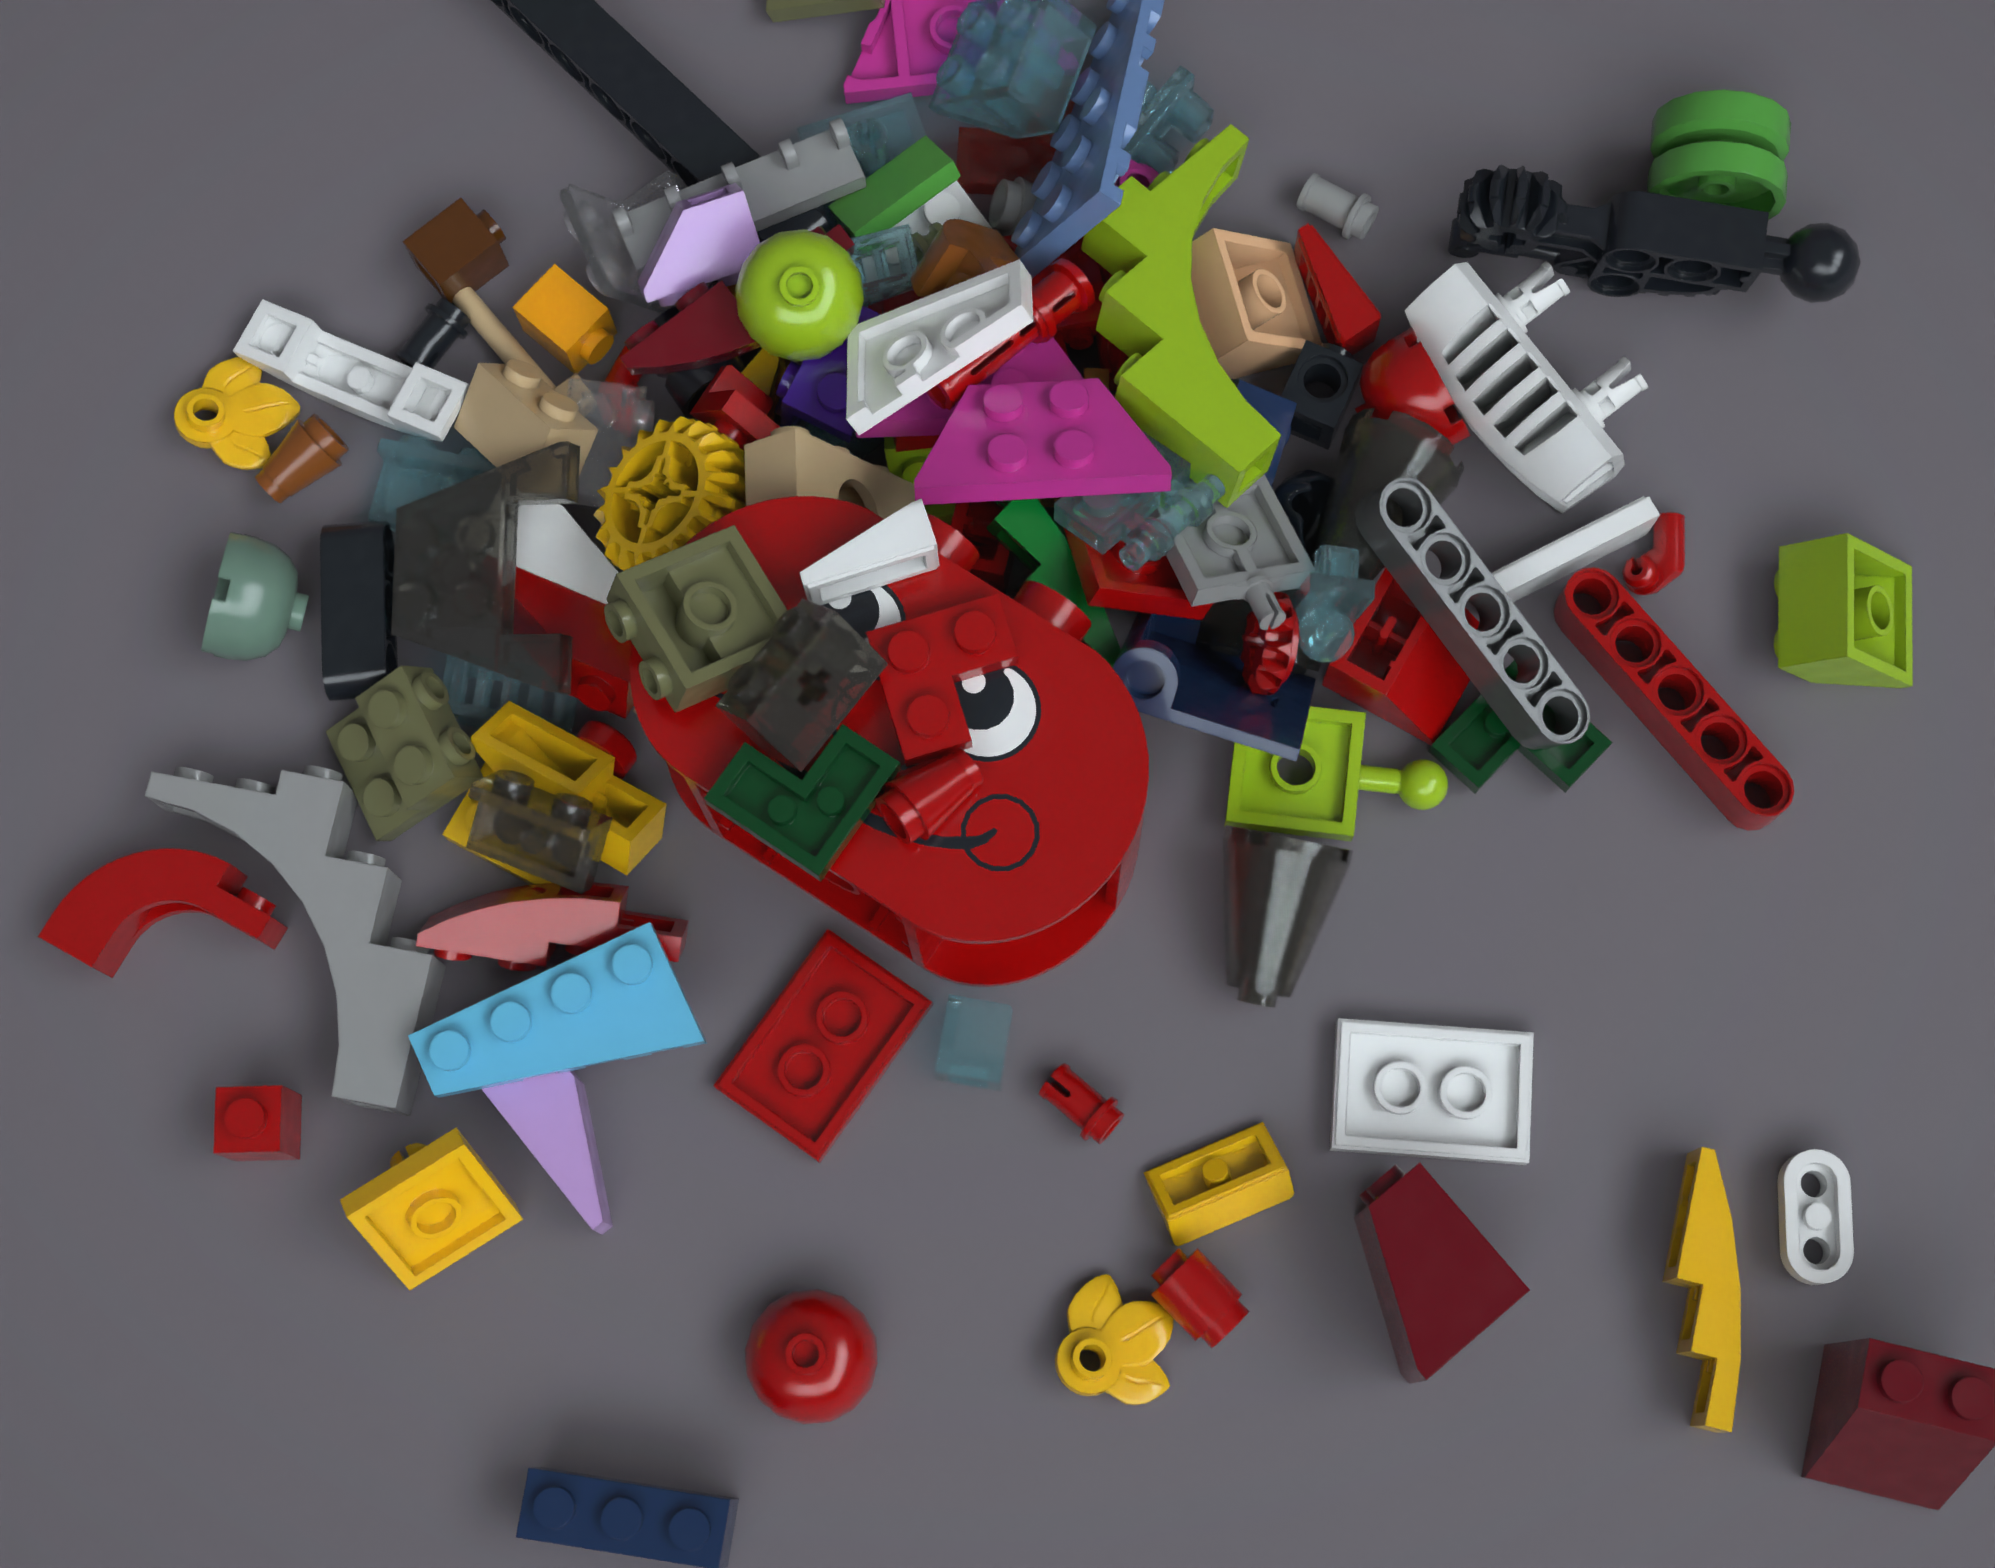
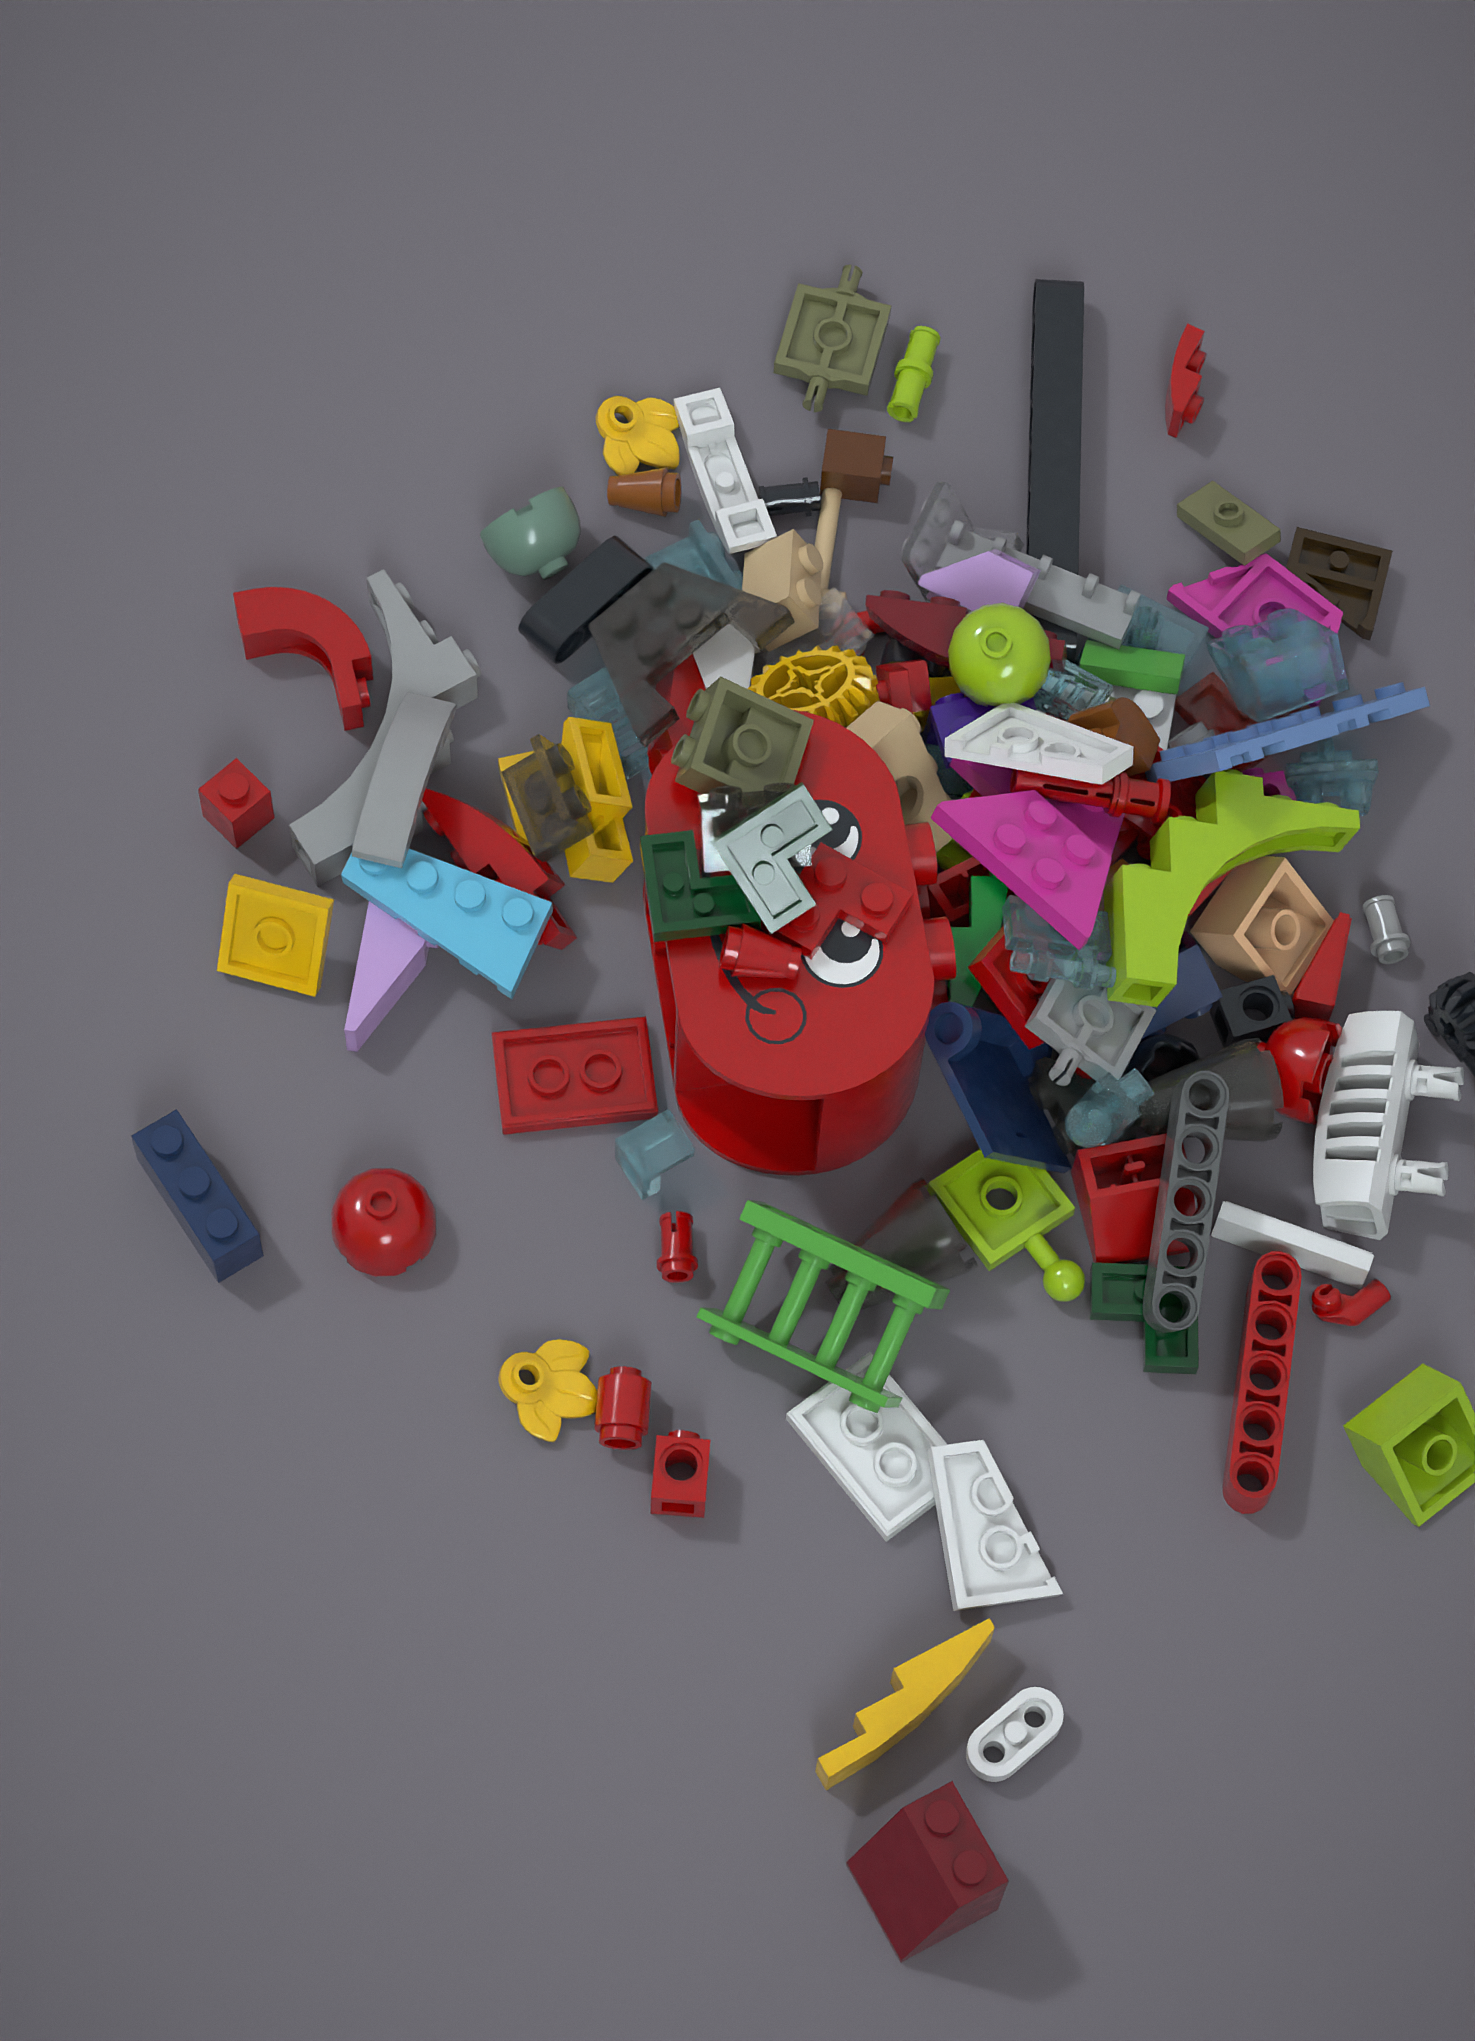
camera: 40 degrees right, 10 degrees down
(310, 156) = (832, 338): none -> olive plate
(392, 950) = (401, 779): none -> light grey slope
(404, 751) = (526, 692): olive plate -> none
(415, 118) = (913, 373): none -> lime pin
(566, 320) = (871, 557): light orange brick -> none
(612, 742) = (637, 789): red tile -> none
(838, 694) = (760, 850): none -> plate
(882, 555) = (871, 810): white slope -> none
(1220, 1184) = (703, 1370): yellow slope -> none
(1271, 652) = (1052, 1101): red gear -> none
(1285, 964) = (864, 1274): none -> bright green fence
(1340, 1306) = (677, 1496): none -> red brick
(1430, 1270) = (758, 1521): dark red slope -> none
(1608, 1077) = (982, 1535): none -> white wing

